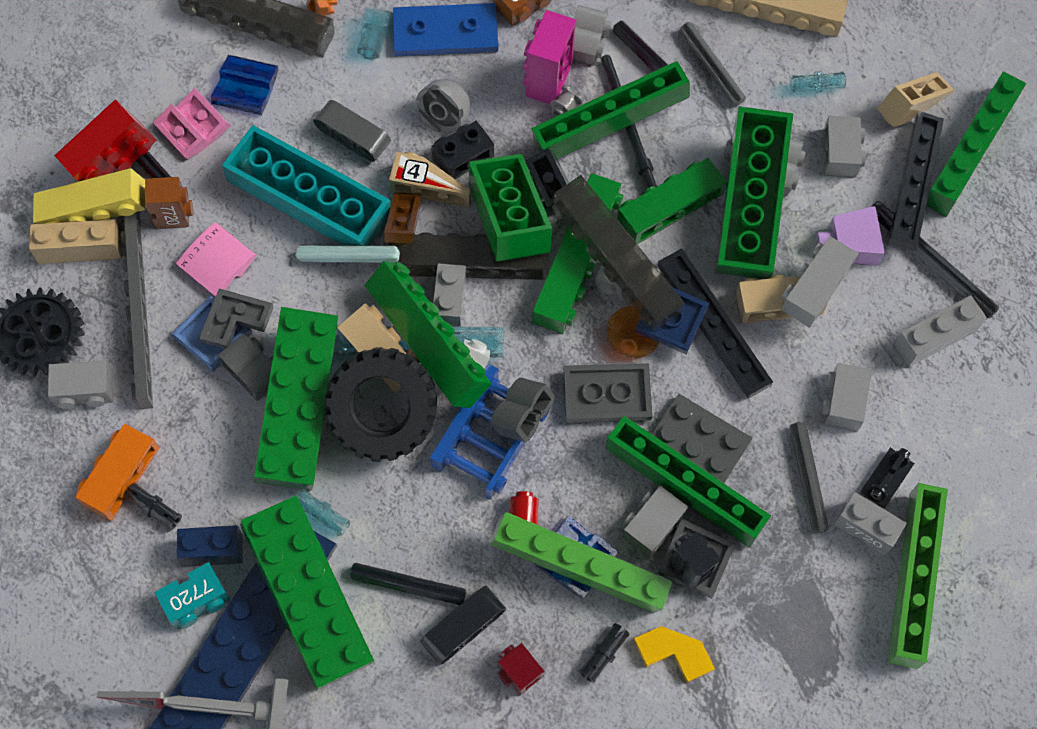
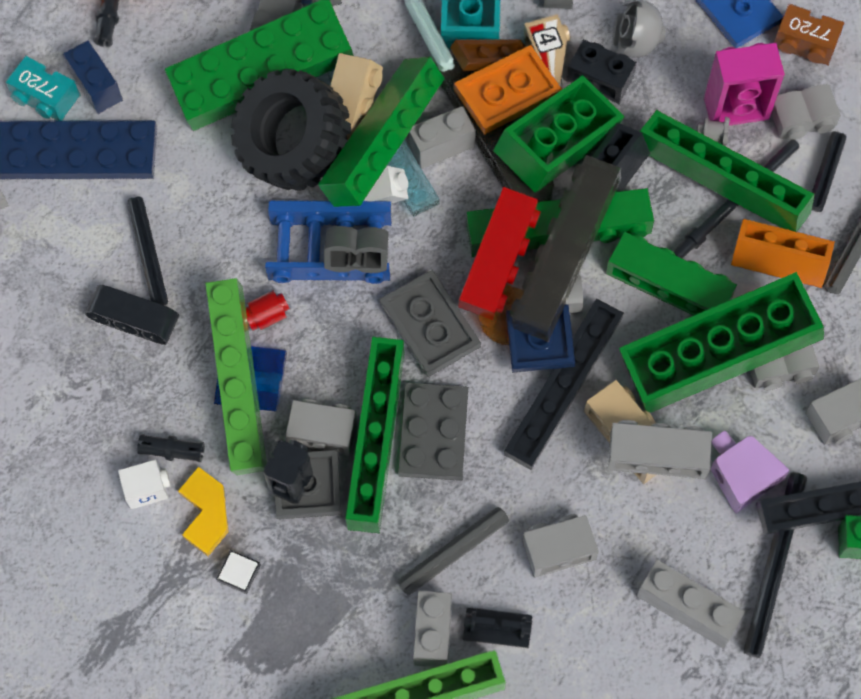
camera: 65 degrees right, 0 degrees up
(306, 592) = (85, 168): green brick -> none
(322, 513) = (173, 146): clear light blue pin -> none
(446, 222) = (507, 89): none -> orange plate
(519, 668) = (115, 381): dark red brick -> none
(589, 305) = (498, 254): none -> red brick
(627, 689) = (144, 484): none -> white brick
(697, 114) = (782, 252): none -> orange brick
(742, 651) = (238, 572): none -> white tile

